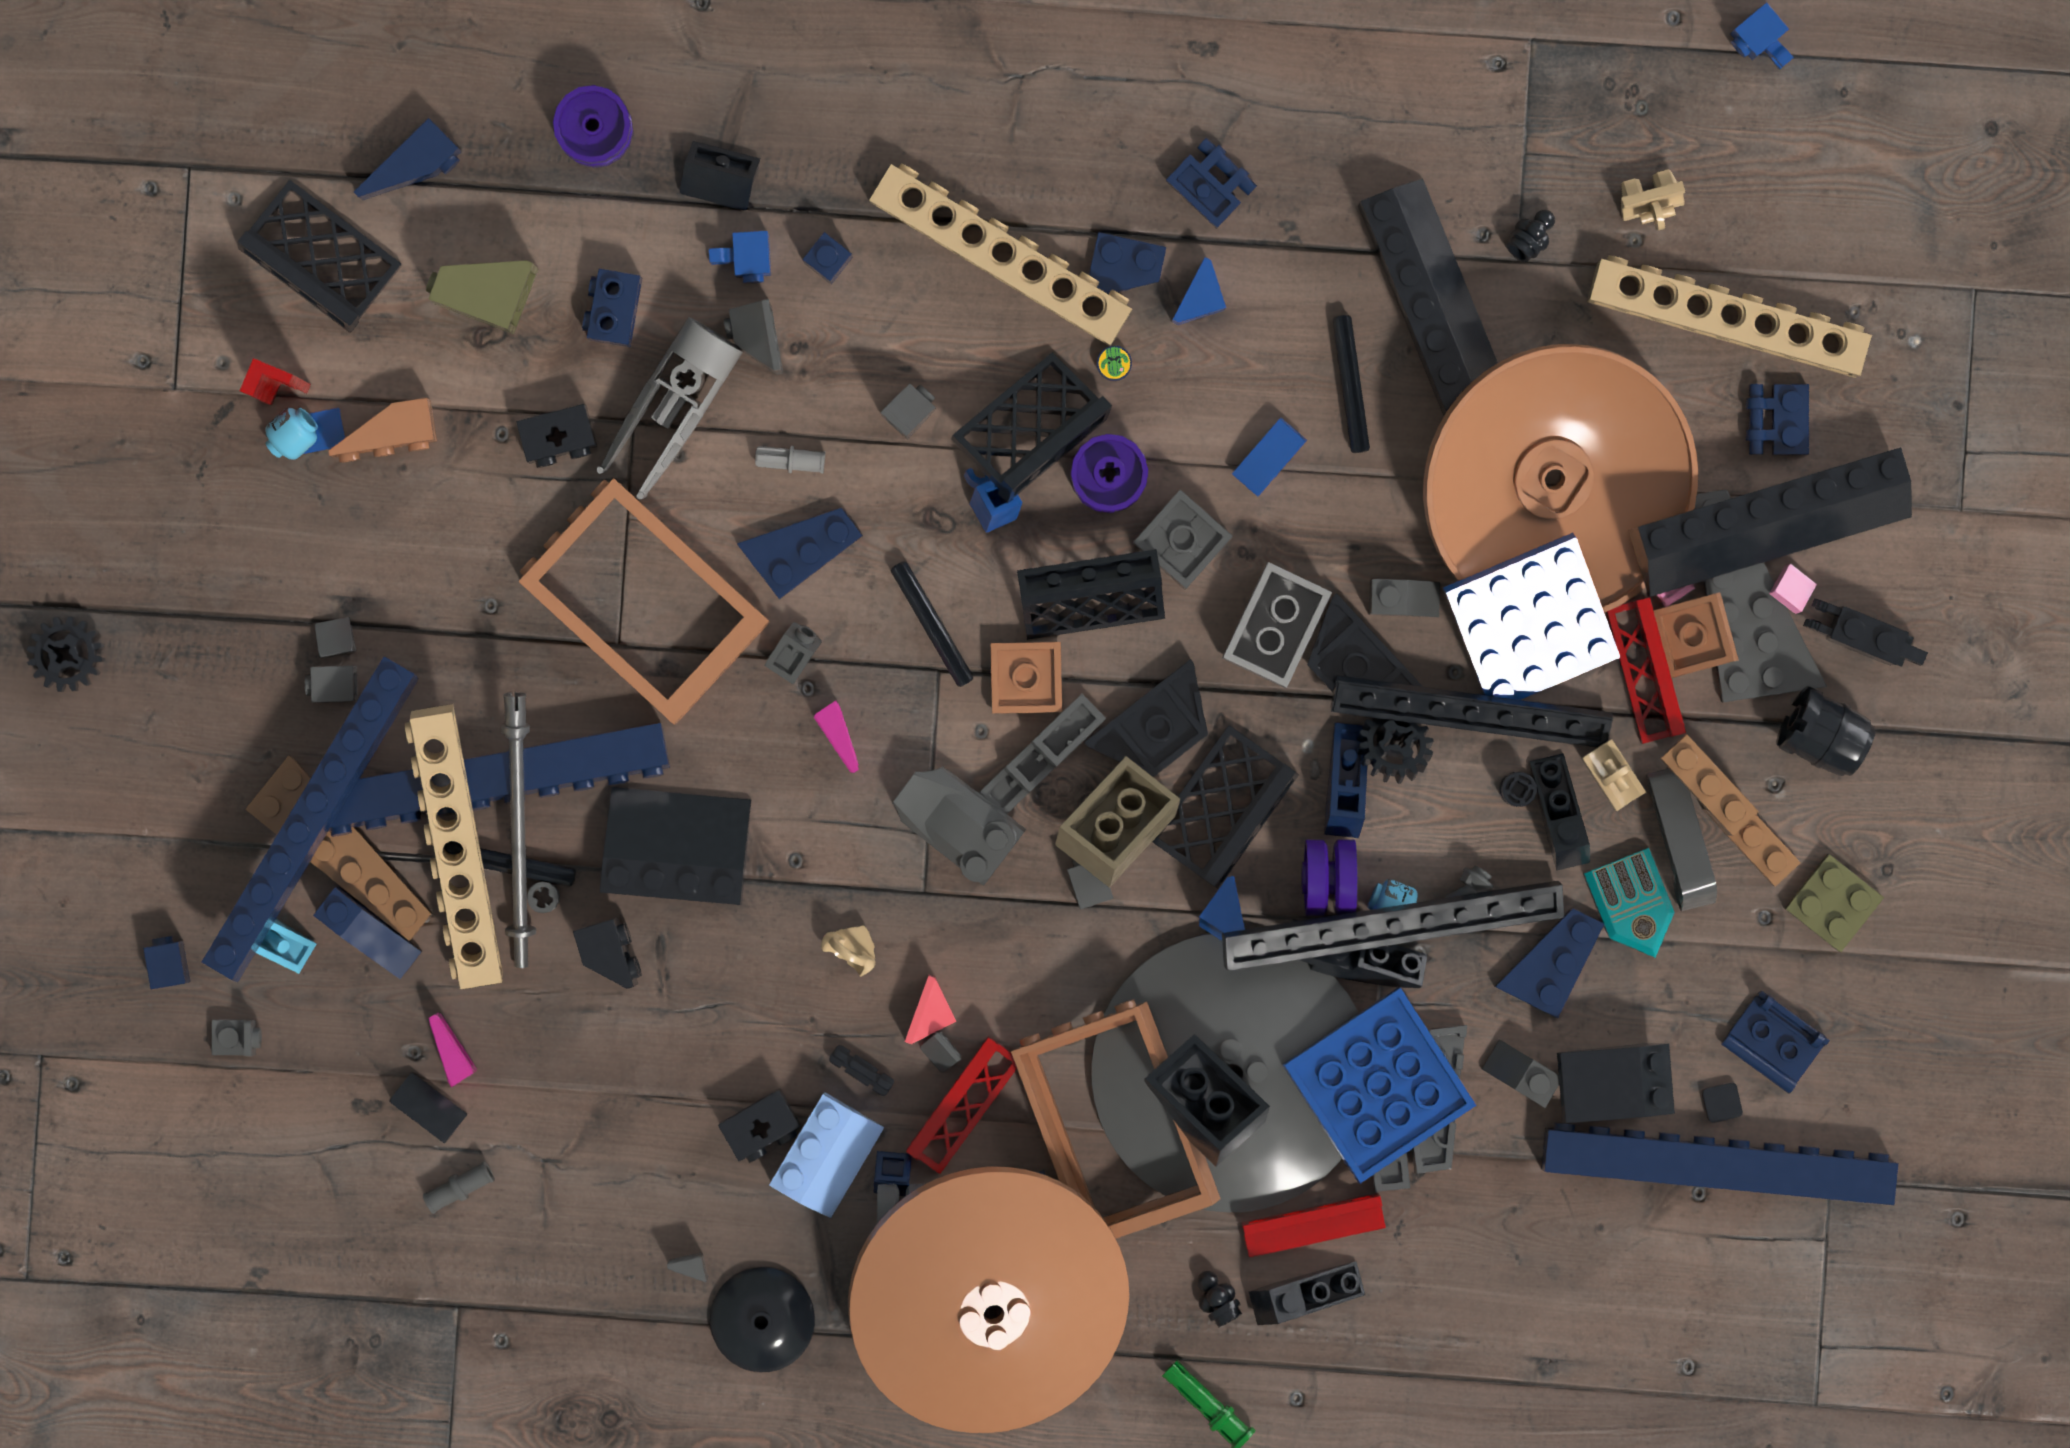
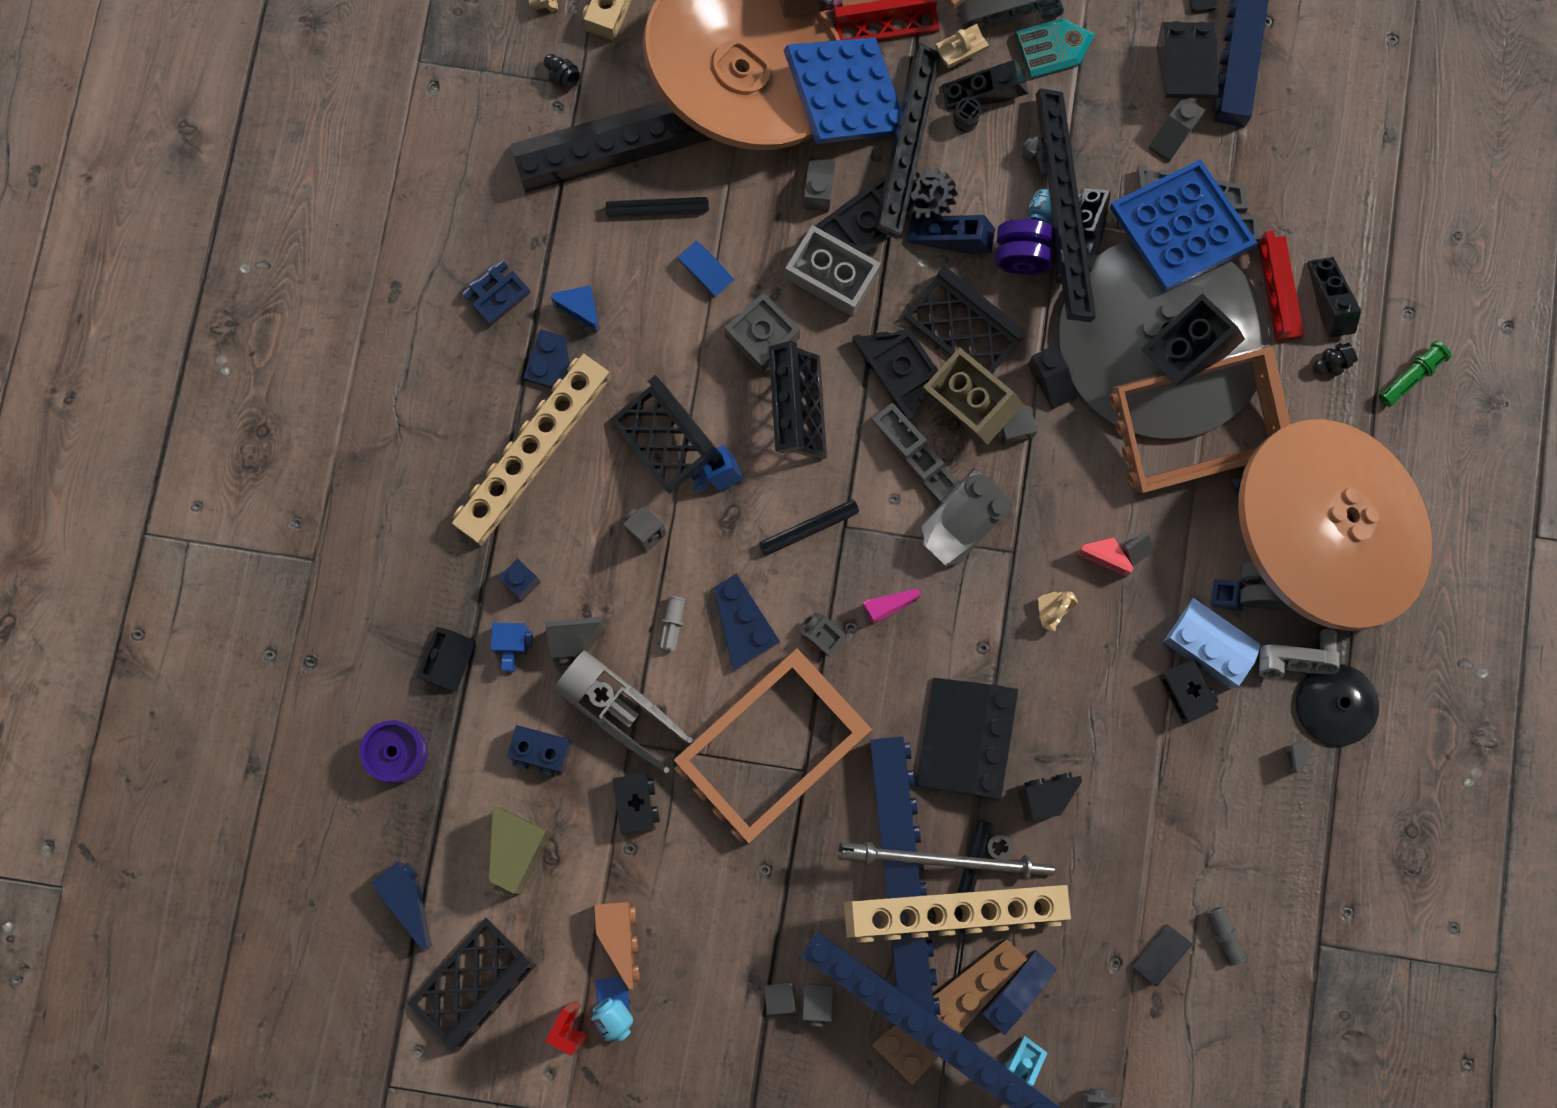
camera: 90 degrees left, 10 degrees down
(453, 1056) = (1124, 929): dark pink slope -> none
(812, 1234) = (1277, 658): none -> light grey beam
(861, 1070) = (1148, 610): black axle -> none
(952, 1098) = (1174, 540): red fence -> none
(1026, 677) = (856, 459): nougat plate -> none
(1114, 363) = (623, 375): tile -> none
(1114, 453) = (701, 368): dark purple wheel -> none
(1159, 928) = (1053, 376): none -> black slope
(1223, 911) = (1047, 326): blue slope -> none
(1553, 966) = (1097, 103): dark blue wing -> none

